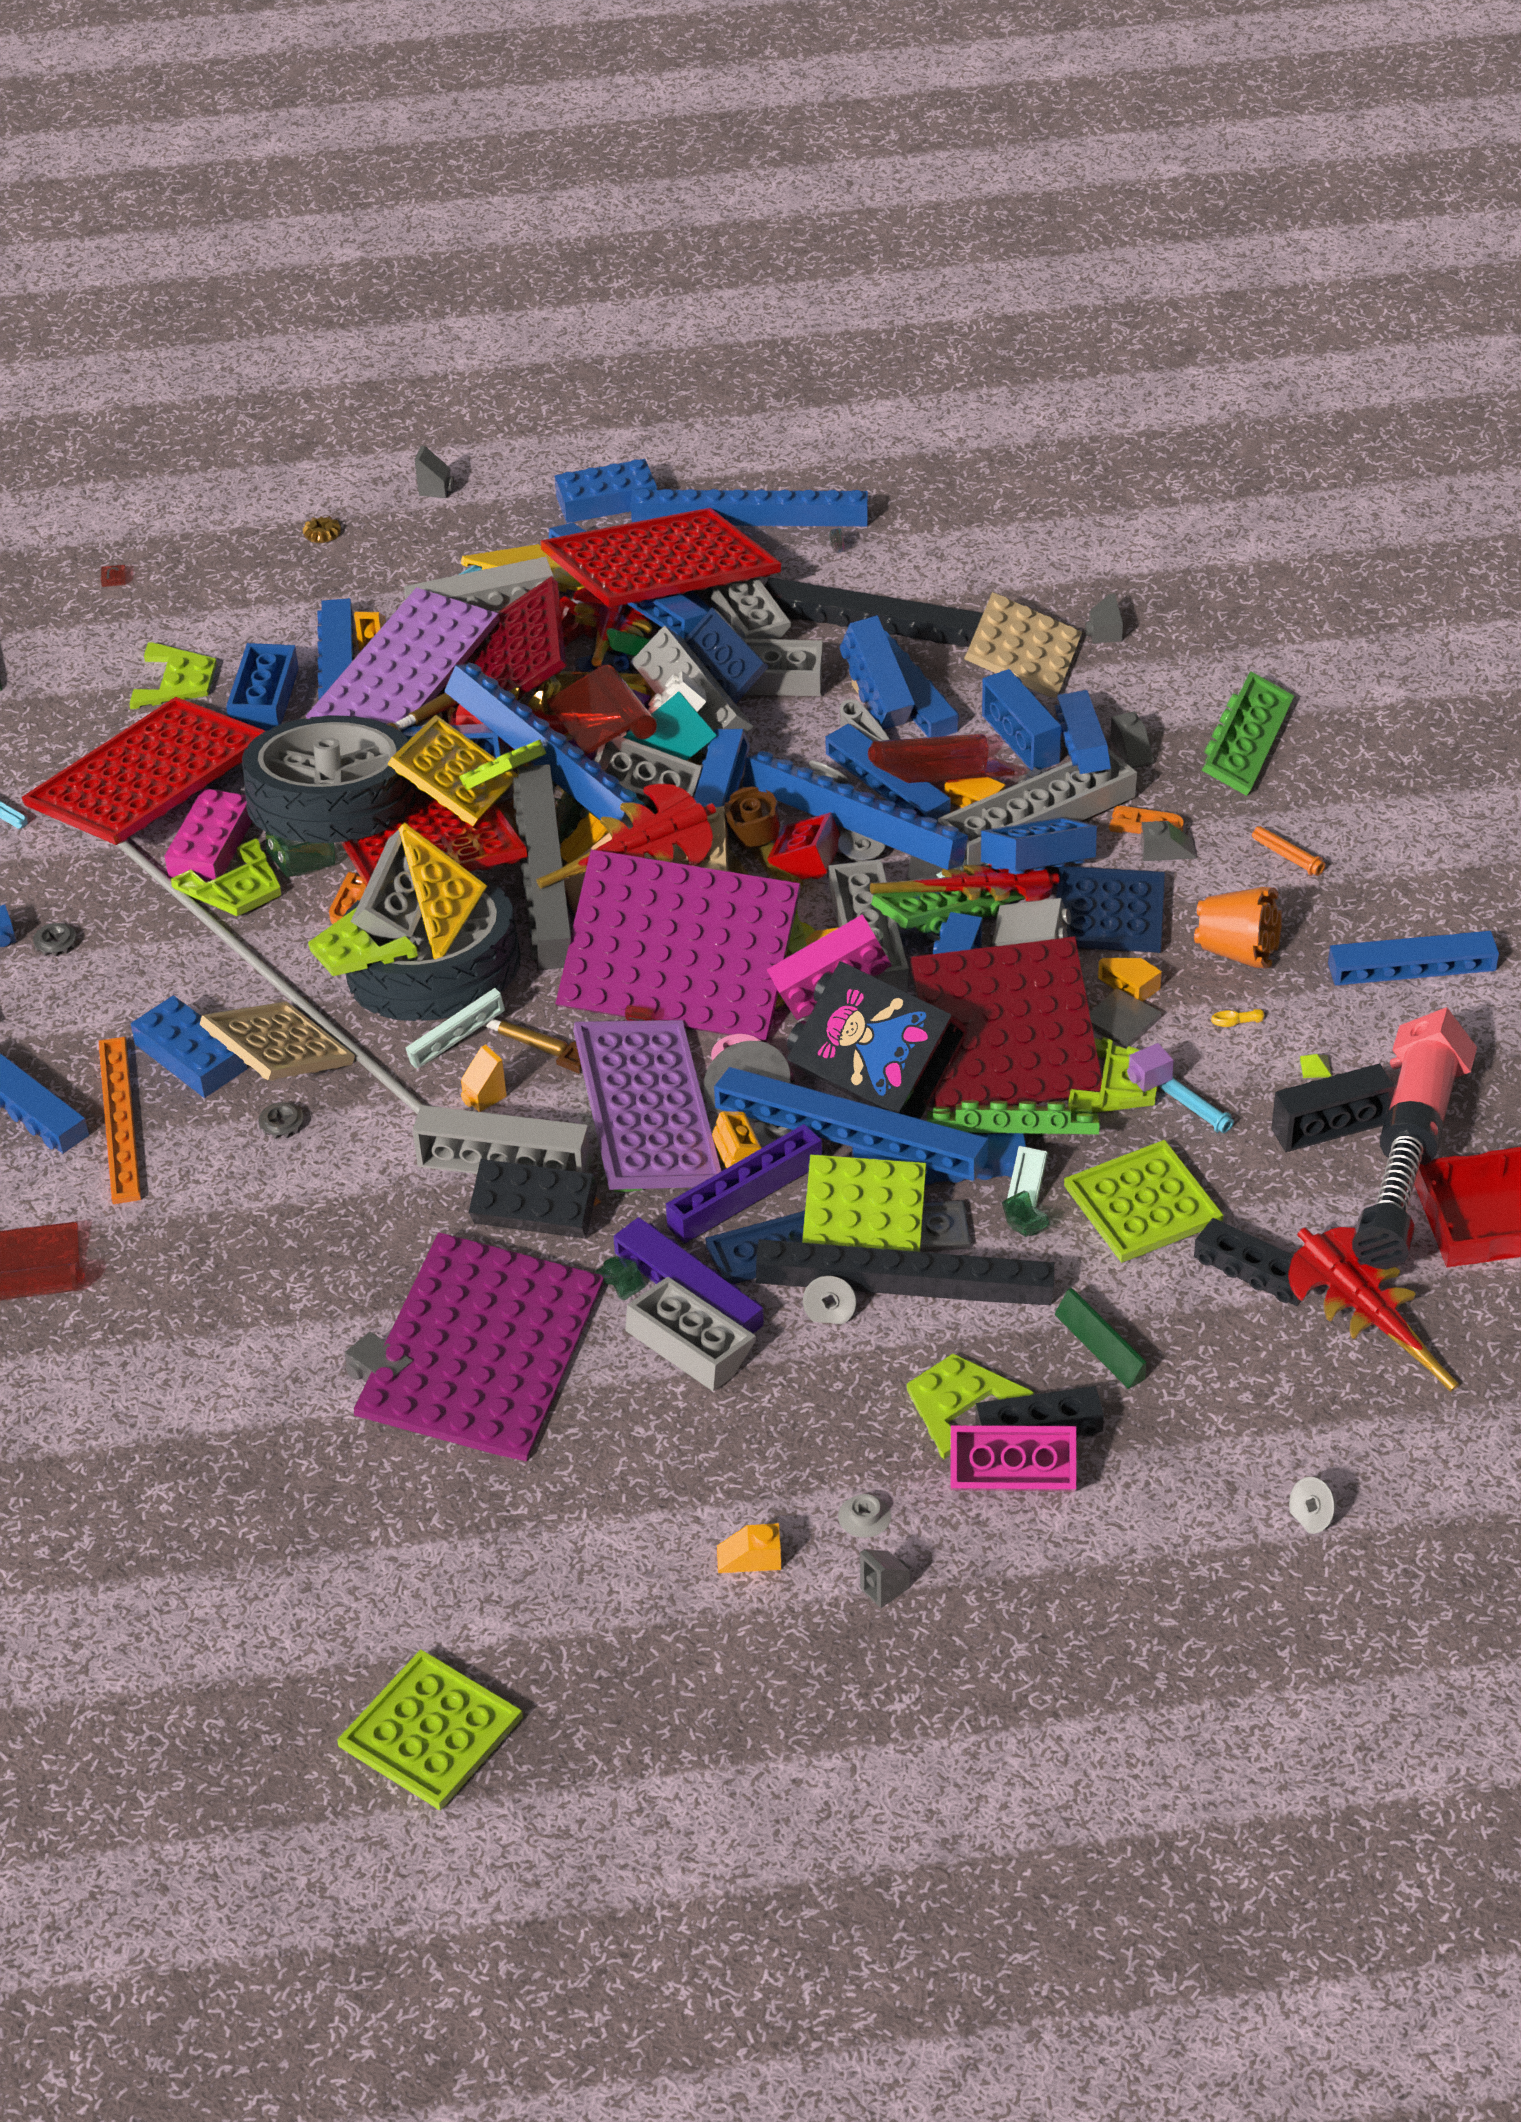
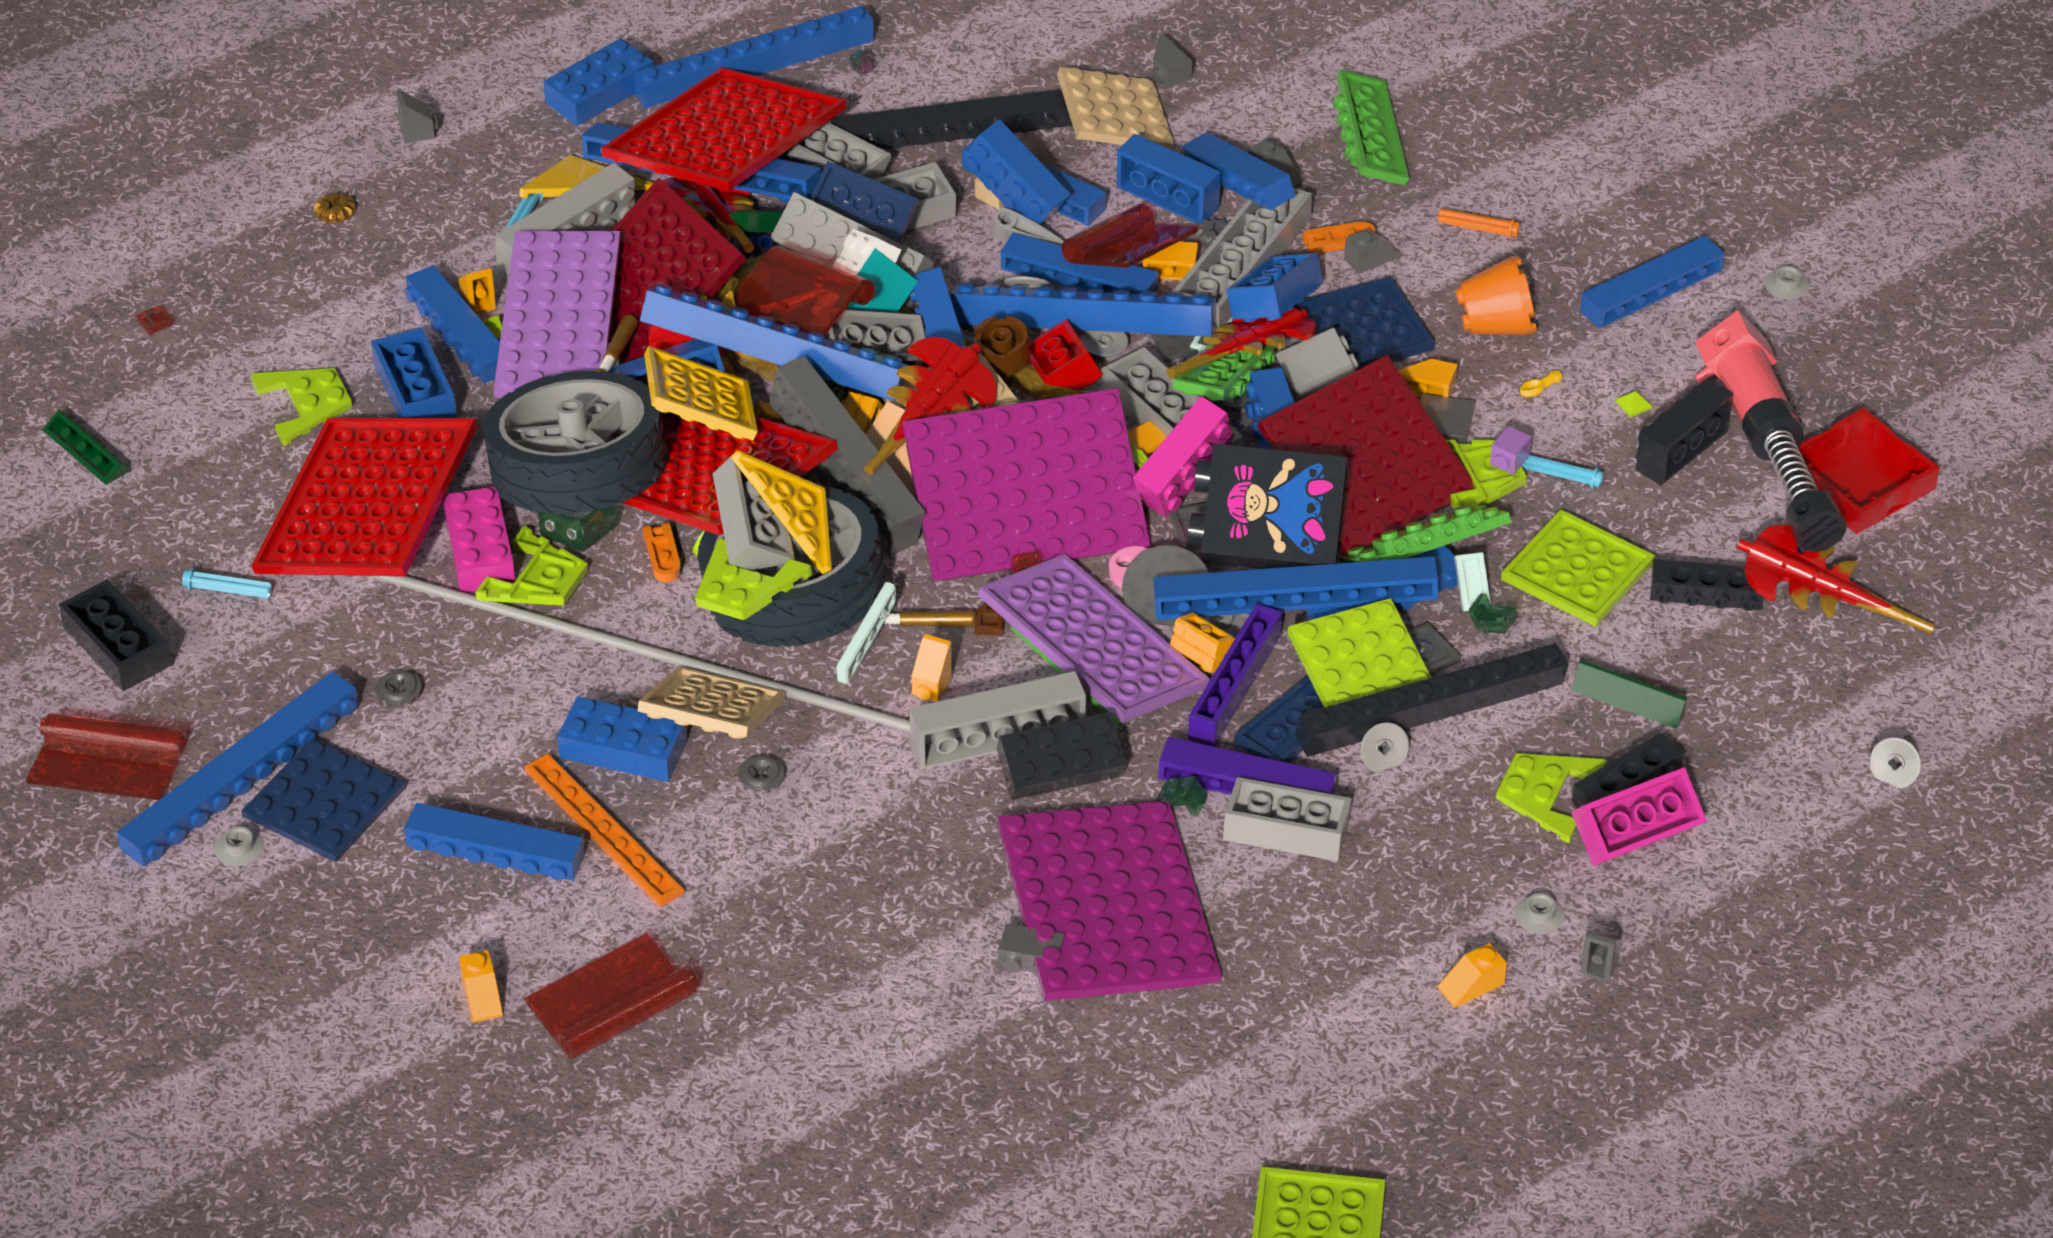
camera: 30 degrees left, 0 degrees up
(503, 764) = (762, 370): lime plate -> none

